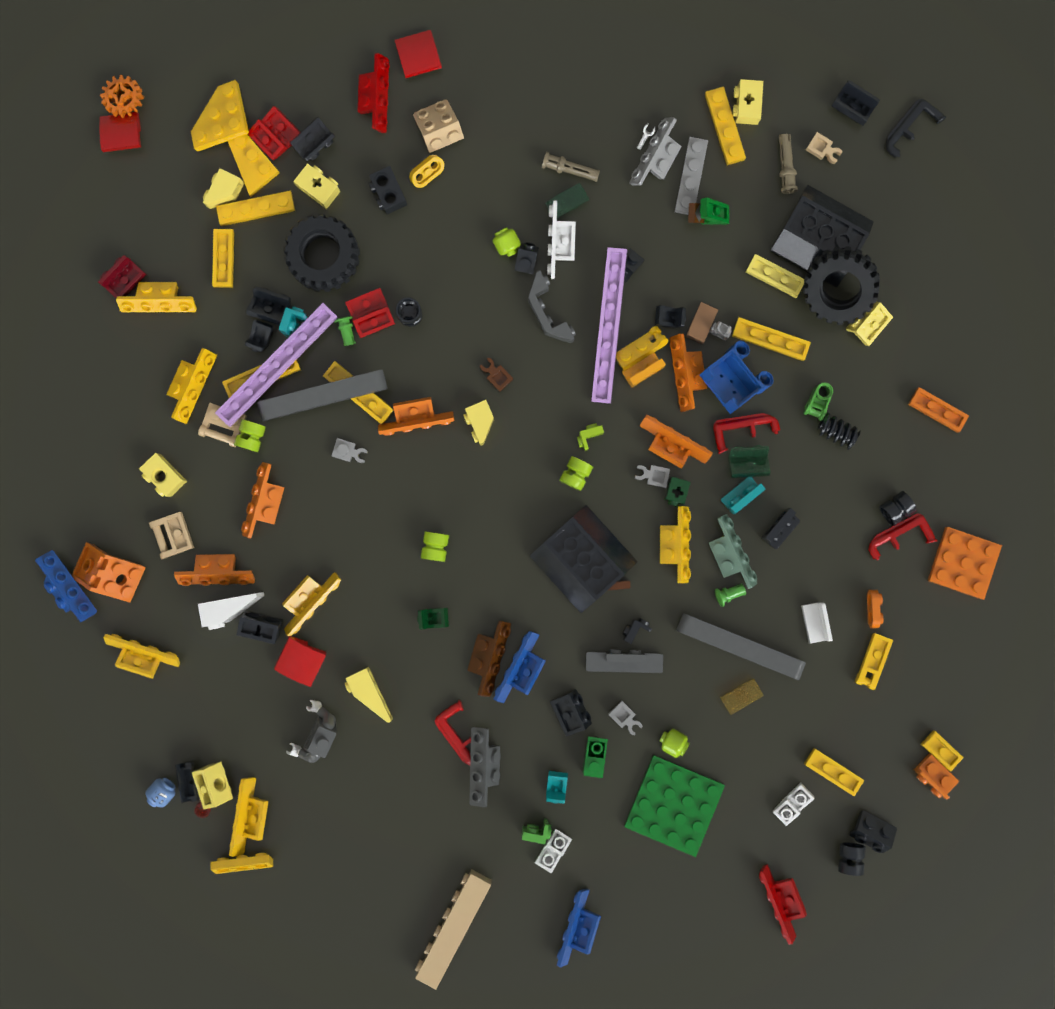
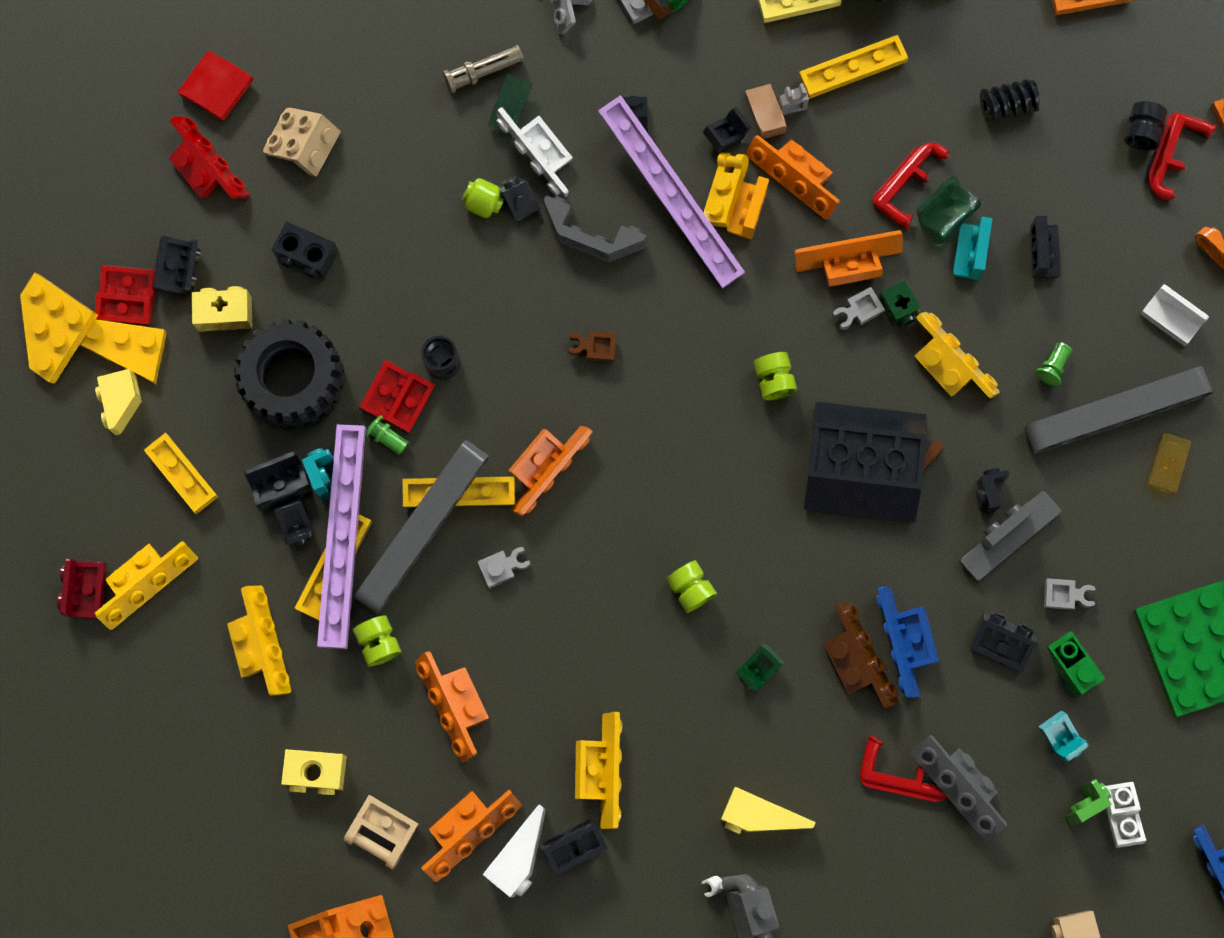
camera: 30 degrees left, 10 degrees down
(211, 417) = (320, 657): tan plate -> none
(255, 208) = (172, 390): yellow plate -> none
(300, 661) = (652, 846): red slope -> none
(426, 171) = (330, 198): yellow plate -> none
(481, 420) = (619, 406): light yellow slope -> none
(591, 431) = (751, 318): lime bracket -> none
(674, 743) = (1145, 575): lime head -> none
(730, 554) = (1017, 323): sand green bracket -> none
(733, 380) = (854, 136): blue piece -> none
(818, 405) = (962, 91): bright green piece -> none

